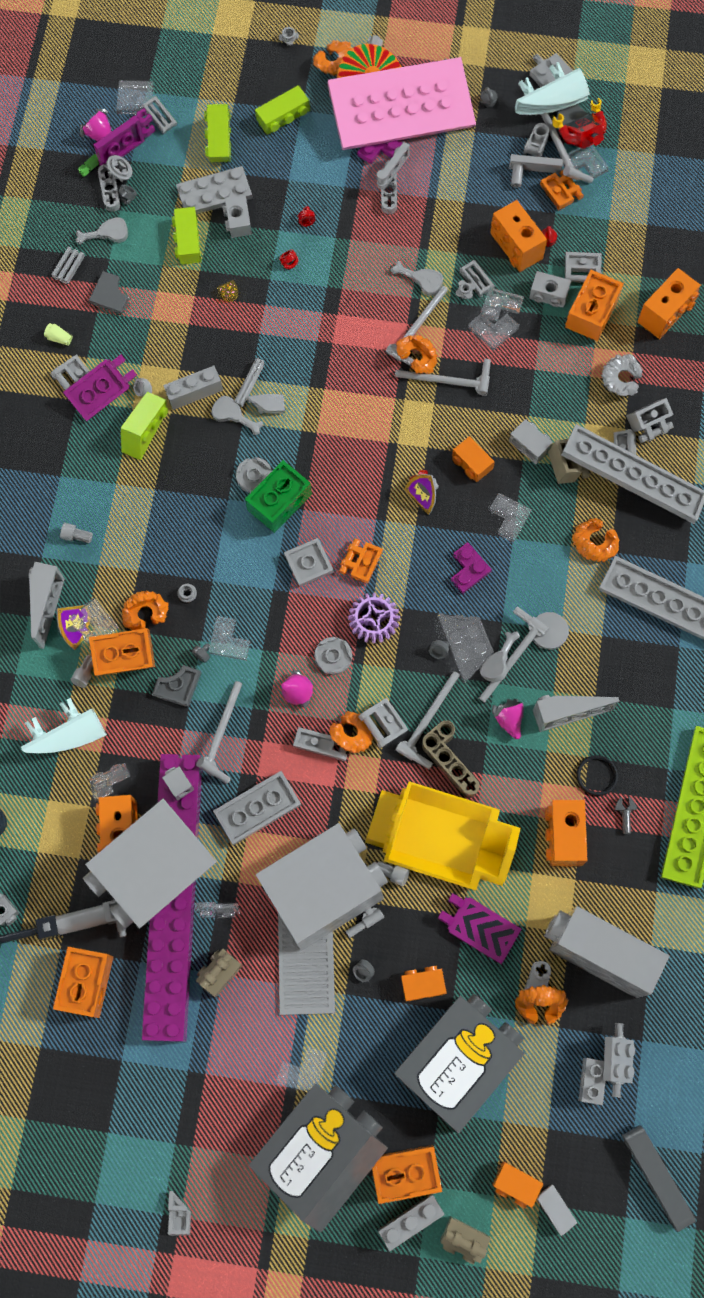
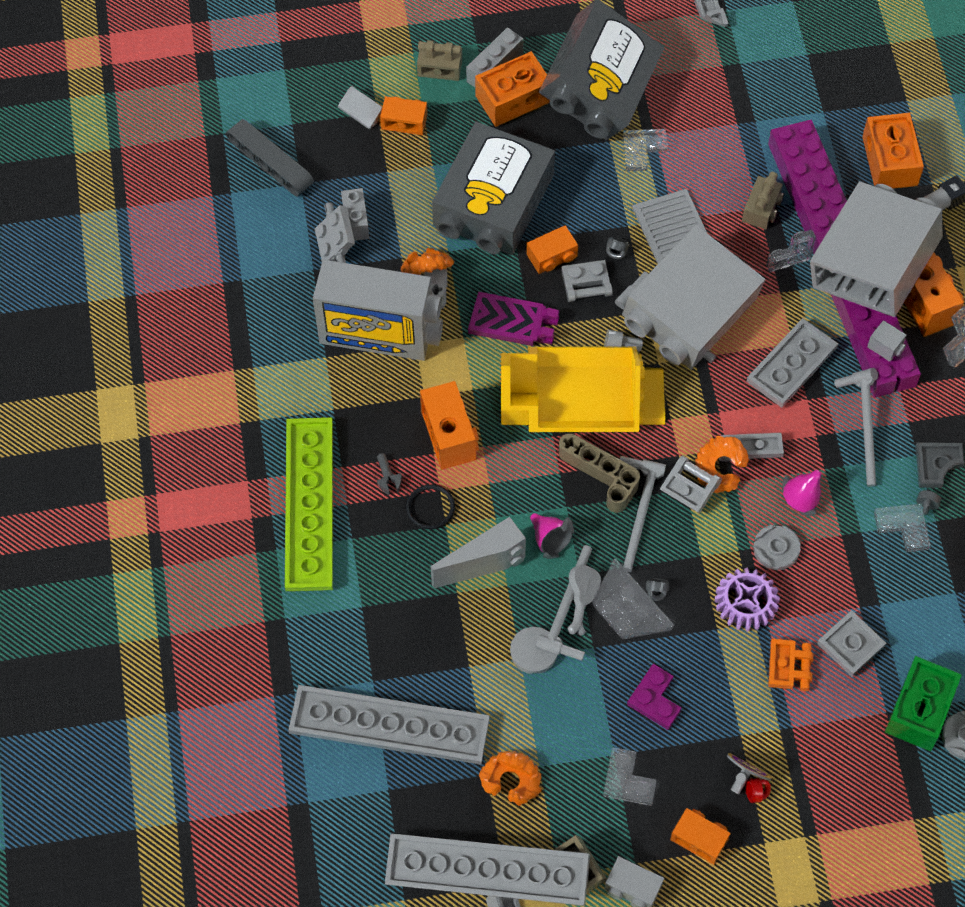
camera: 160 degrees right, 10 degrees down
(401, 952) = (586, 275): none -> light grey plate

